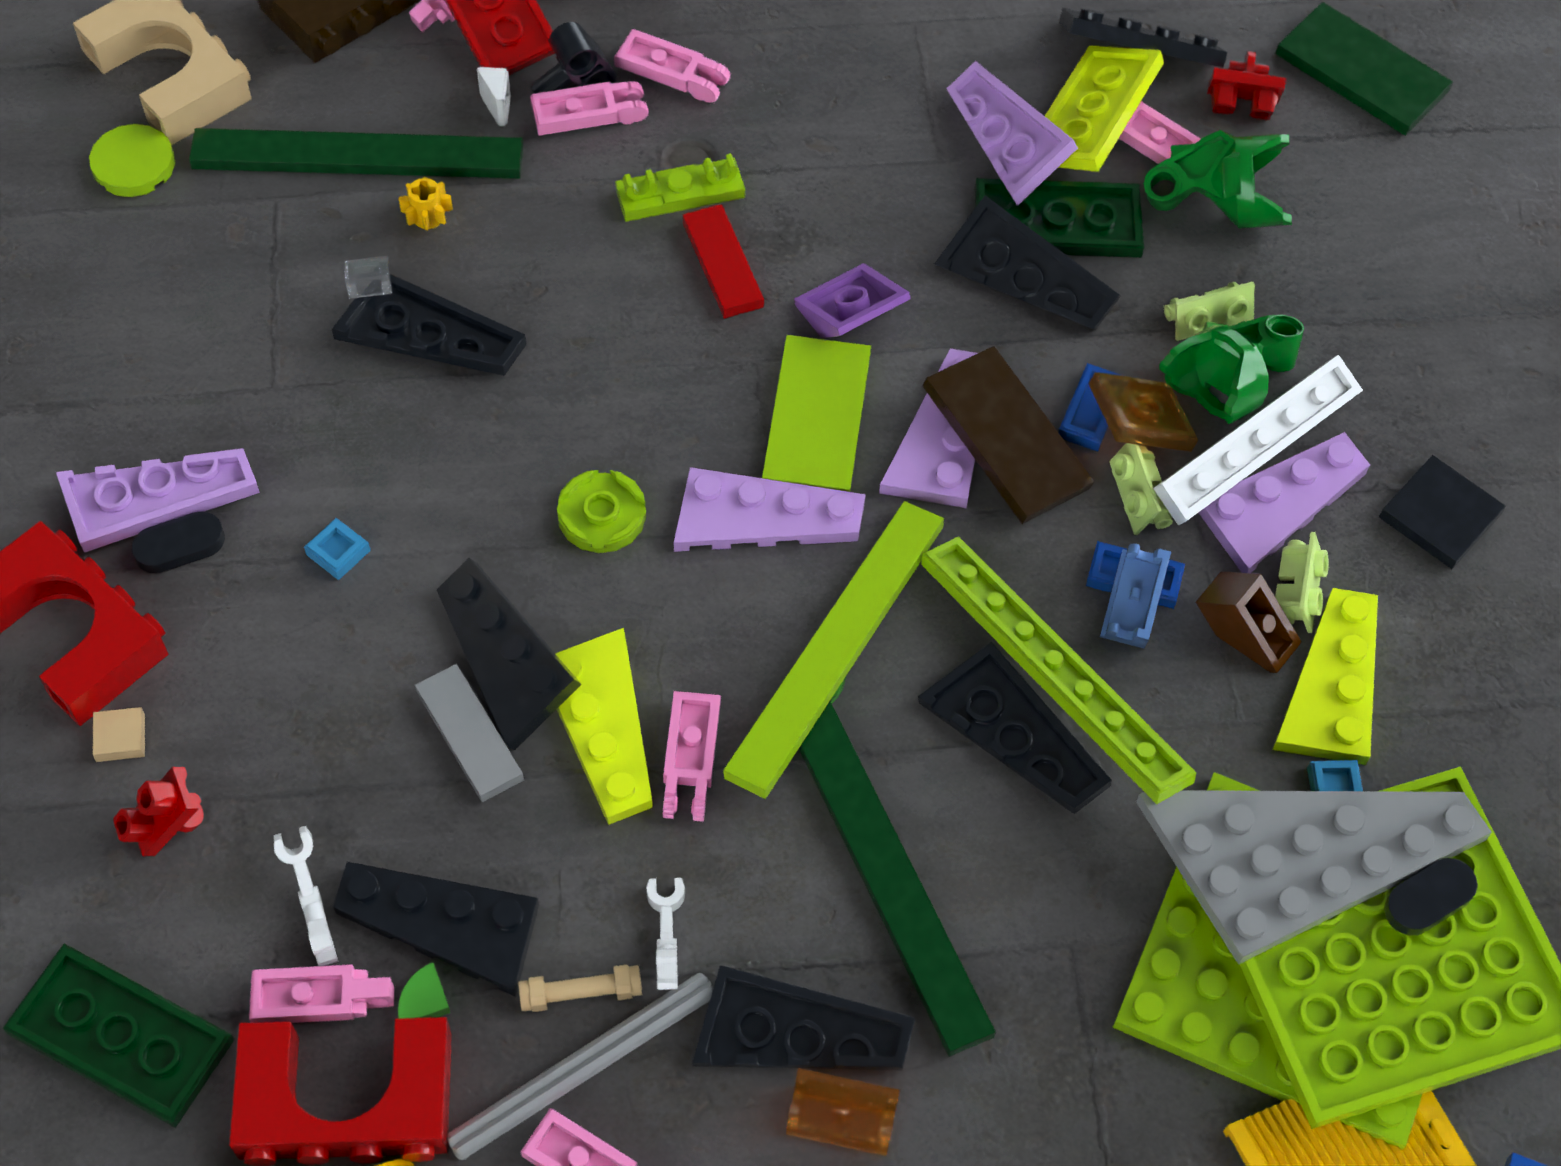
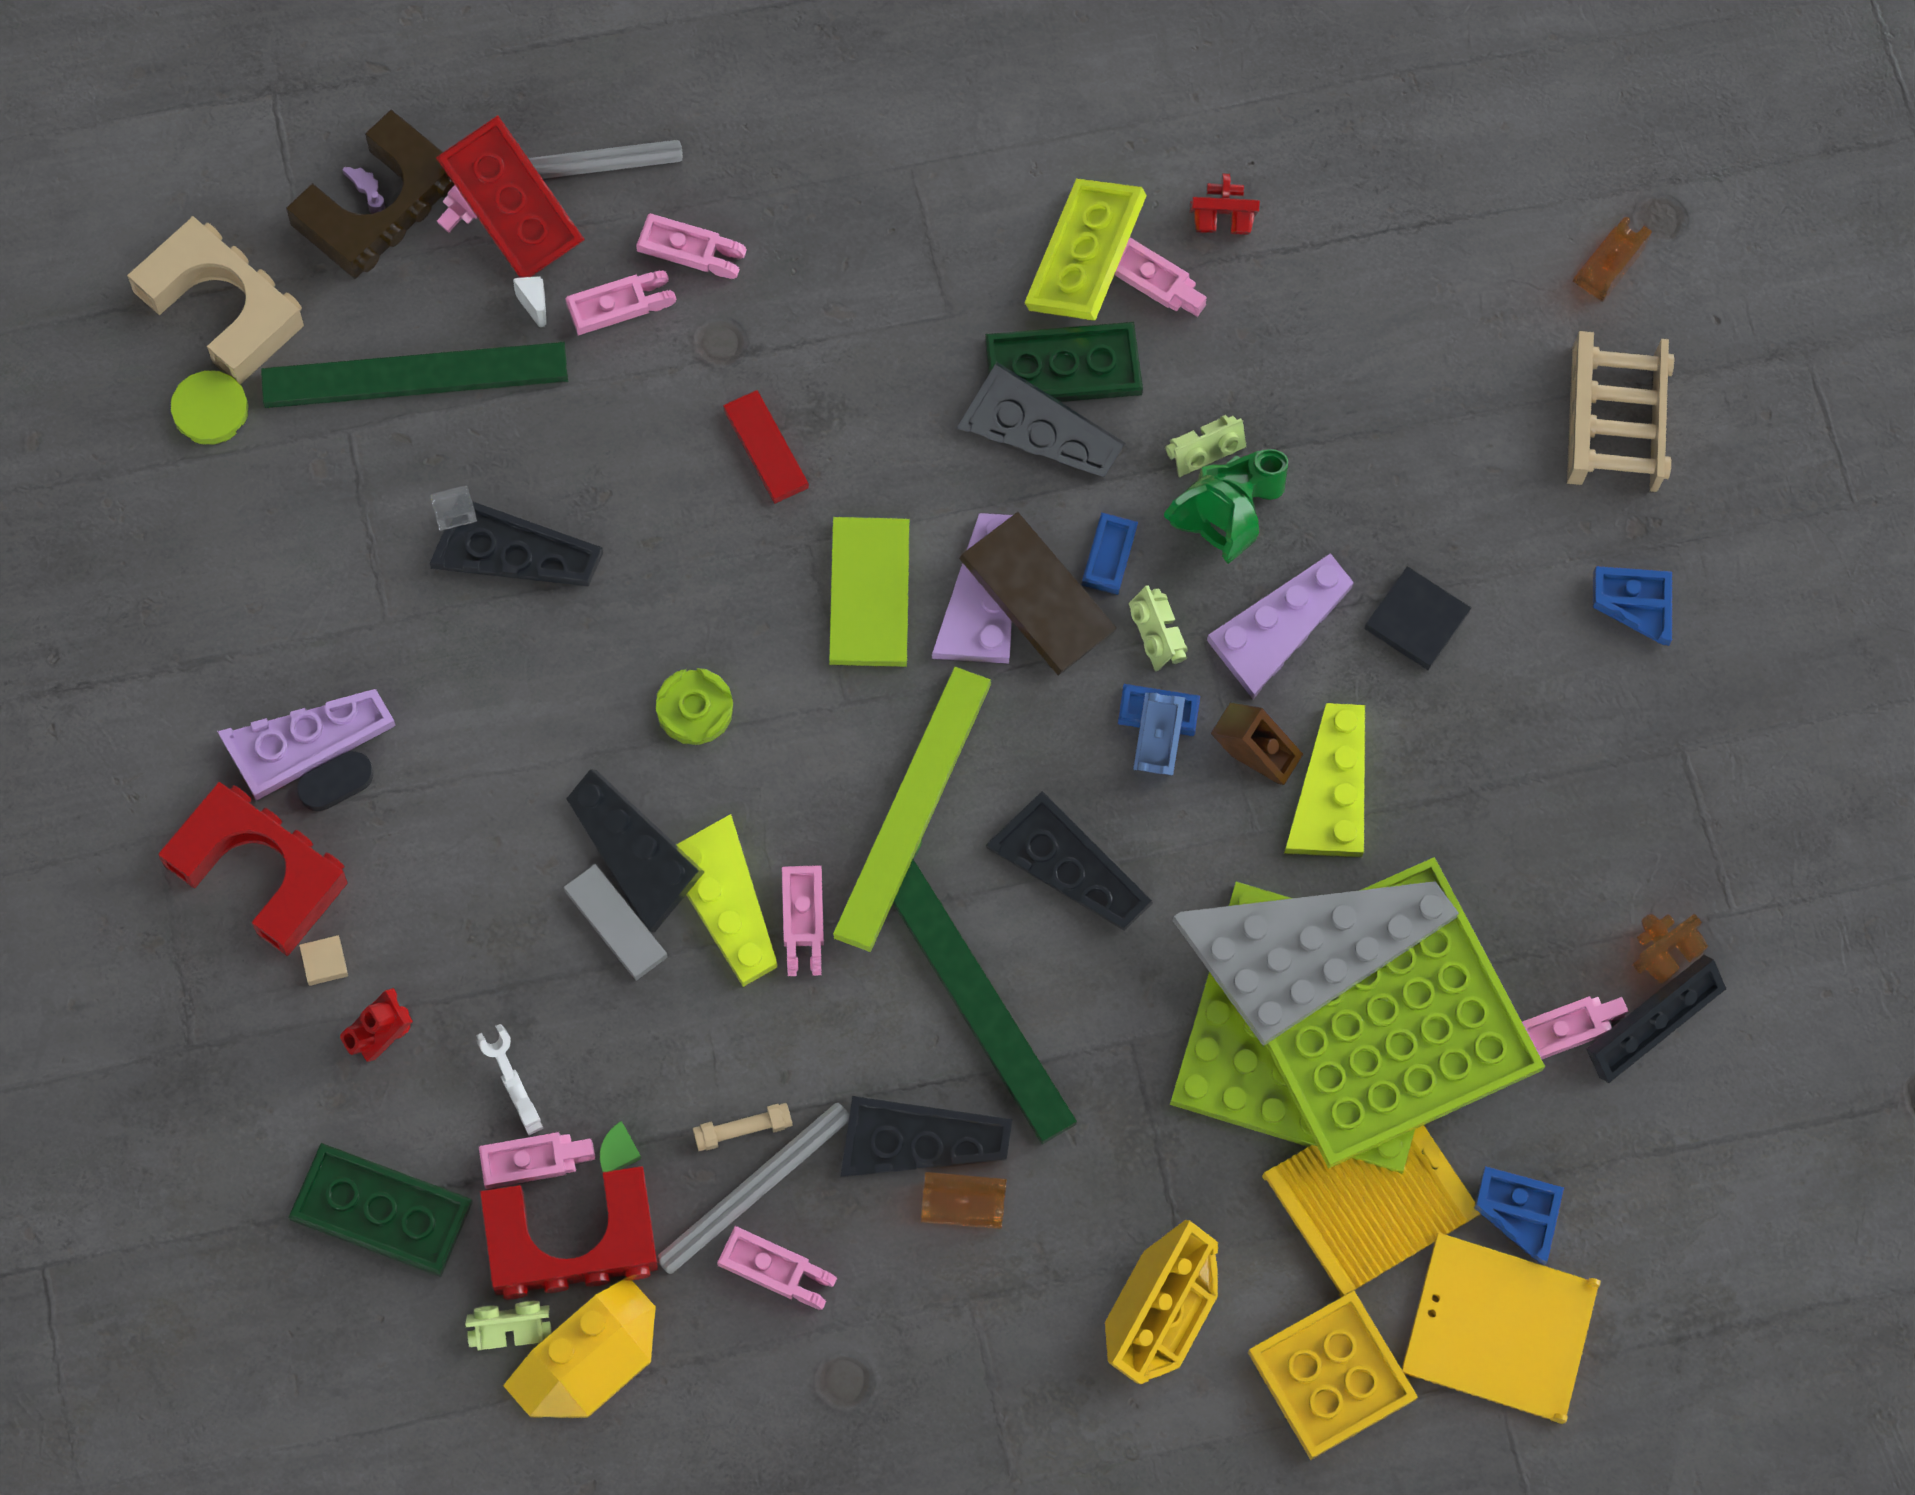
camera: 10 degrees left, 10 degrees up
(337, 548) = (473, 770): dark azure tile -> none
(425, 203) = (493, 433): yellow gear -> none
(460, 923) = (633, 1085): black wing -> none
(578, 59) = (605, 258): black beam -> none
(667, 945) = (806, 1083): white piece -> none
(680, 188) = (716, 376): lime plate -> none
(745, 509) = (825, 690): lavender wing -> none
(849, 301) = (885, 476): medium lavender slope -> none
(1011, 132) = (1015, 290): lavender wing -> none
(1059, 671) = (1097, 809): lime tile -> none
(1131, 34) = (1110, 165): black wing -> none
(1143, 412) = (1153, 559): clear orange tile -> none
(1224, 172) = (1211, 311): green piece -> none
(1257, 440) = (1255, 572): white plate -> none
(1304, 566) = (1302, 686): yellowish green hinge -> none
(1334, 775) = (1336, 875): dark azure tile -> none
(1364, 68) = (1332, 169): dark green tile -> none
(1430, 896) = (1412, 972): black tile -> none

